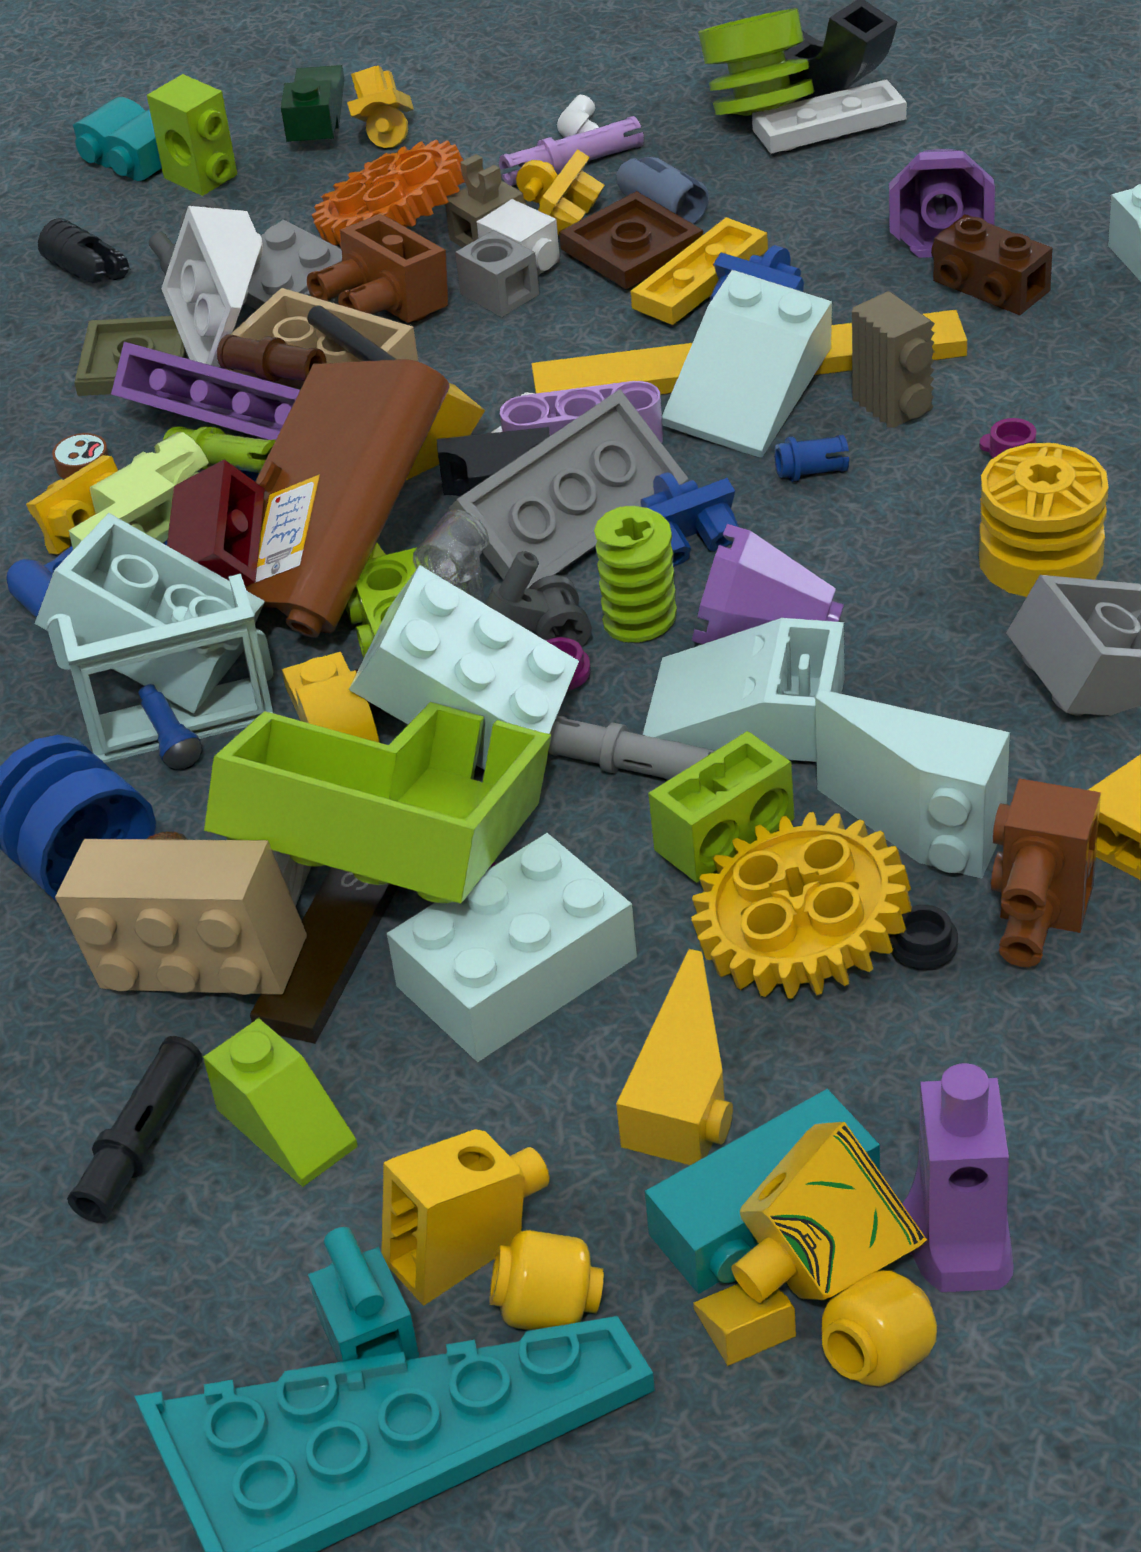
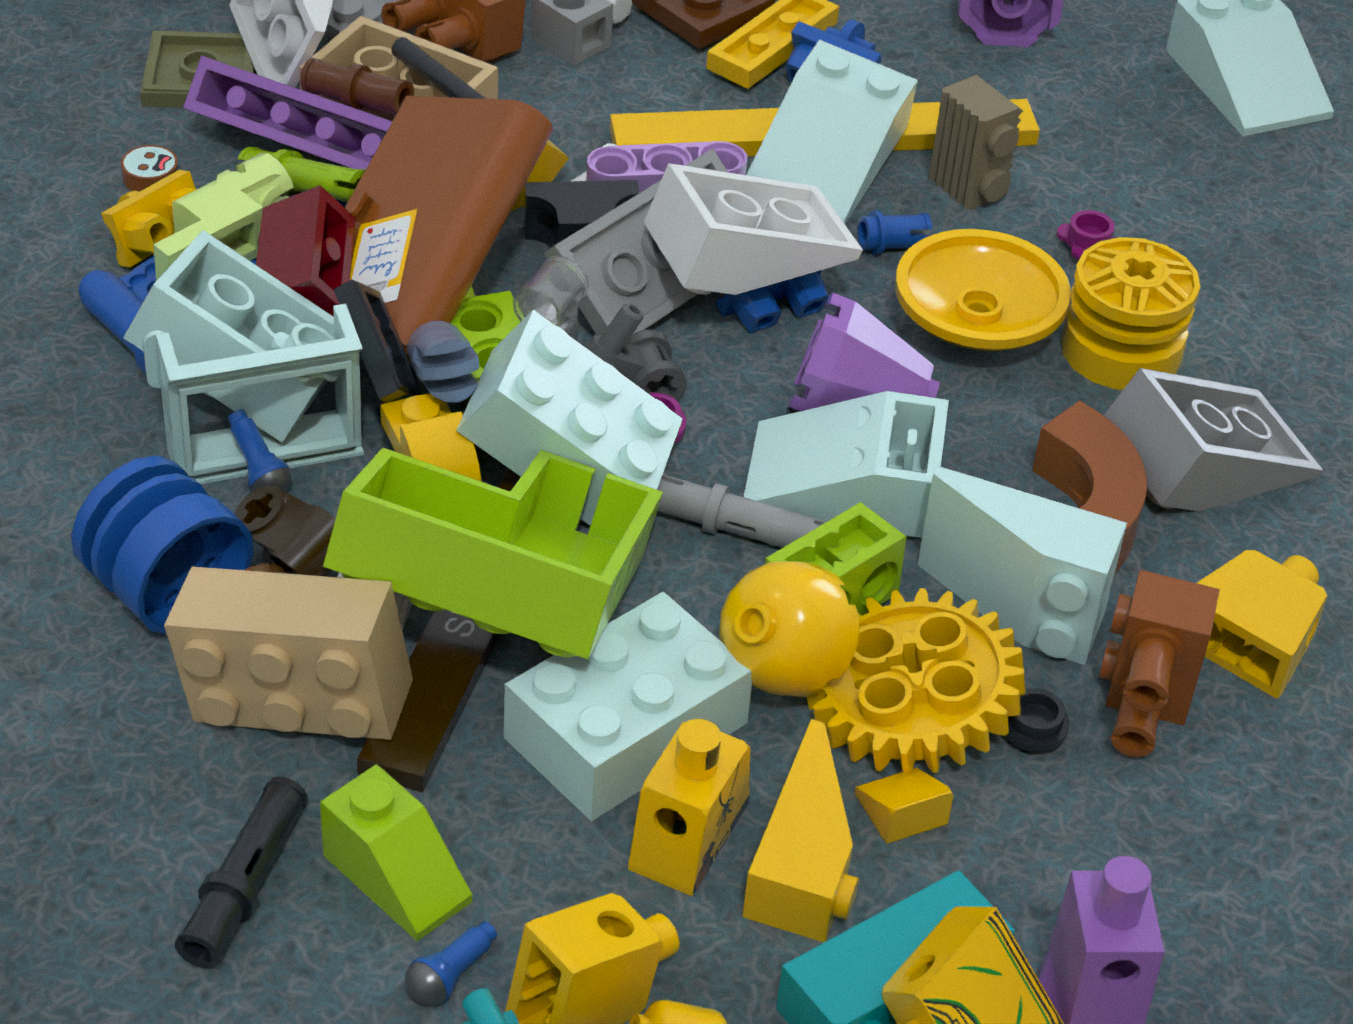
camera: 10 degrees left, 0 degrees up
(179, 794) = (288, 530): none -> dark brown piece
(277, 608) = (382, 348): none -> black plate
(314, 1218) = (434, 976): none -> blue piece
(341, 621) = (443, 360): none -> sand blue arm
(571, 1020) = (696, 780): none -> yellow torso
(635, 573) = (734, 335): lime piece -> none
(648, 462) = (744, 230): none -> white slope
(669, 860) = (790, 627): none -> yellow cylinder
(788, 1028) = (905, 804): none -> yellow slope
(892, 507) = (982, 289): none -> yellow dish
(992, 264) = (1060, 57): reddish brown brick -> none
(1003, 682) = (1094, 467): none -> dark orange arch

